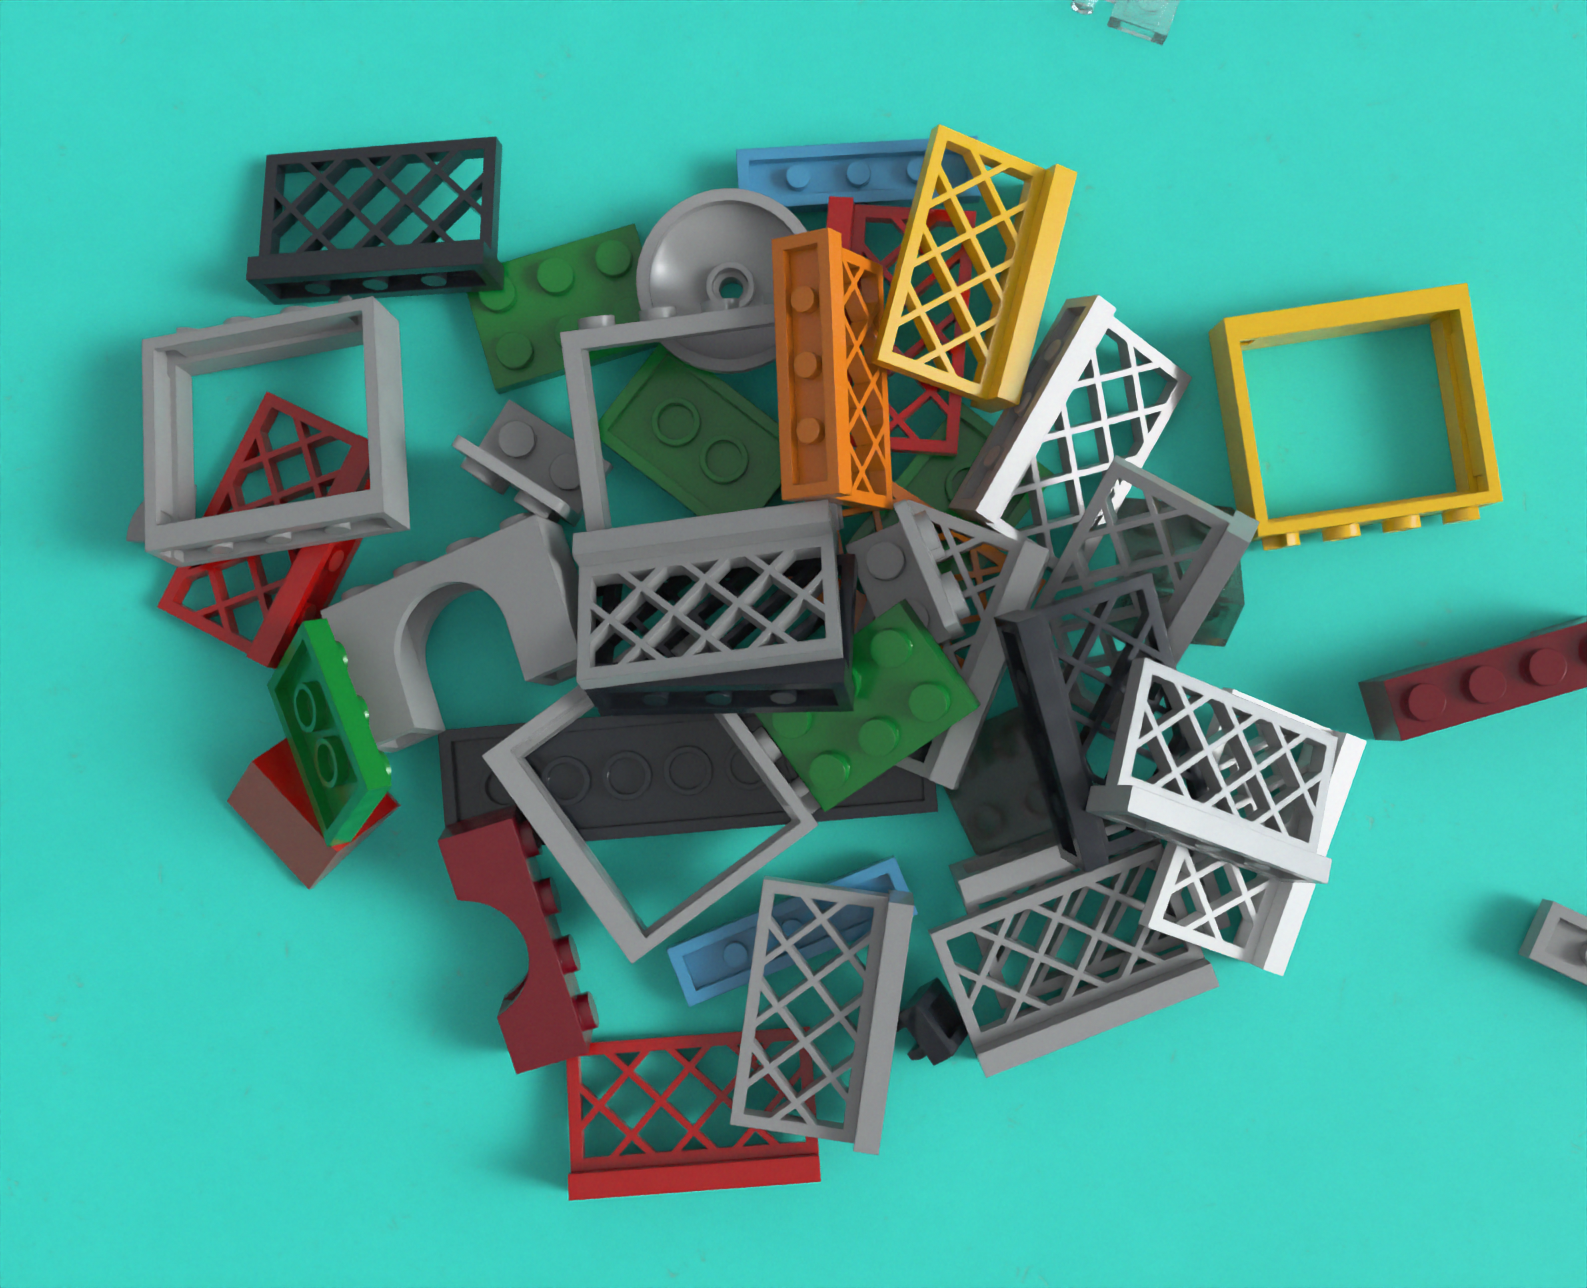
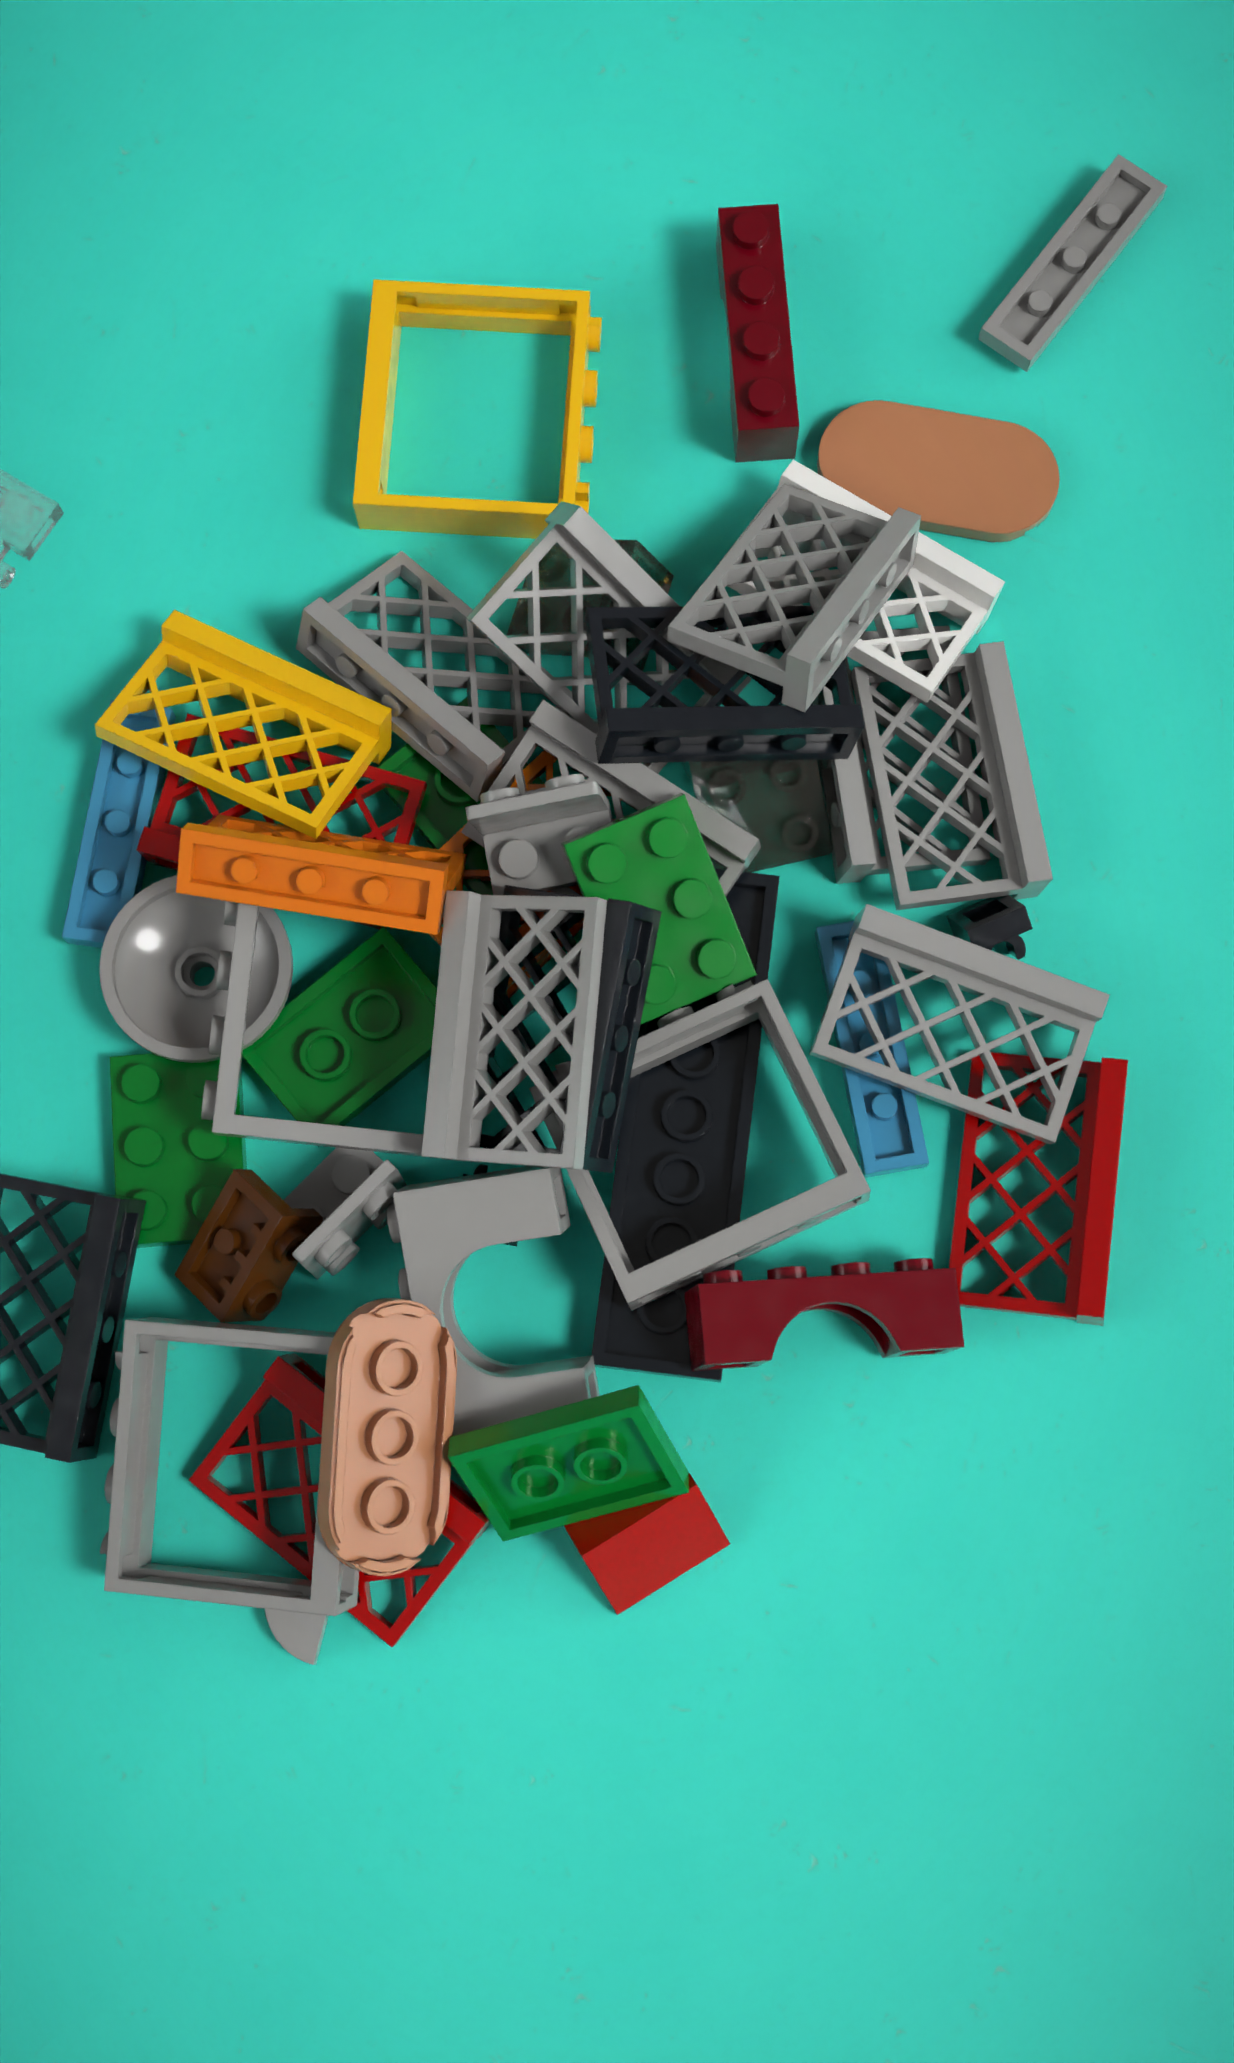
camera: 75 degrees left, 10 degrees down
(310, 560) = (386, 1436): none -> nougat tile
(473, 392) = (245, 1250): none -> reddish brown bracket
(1394, 887) = (949, 467): none -> nougat tile

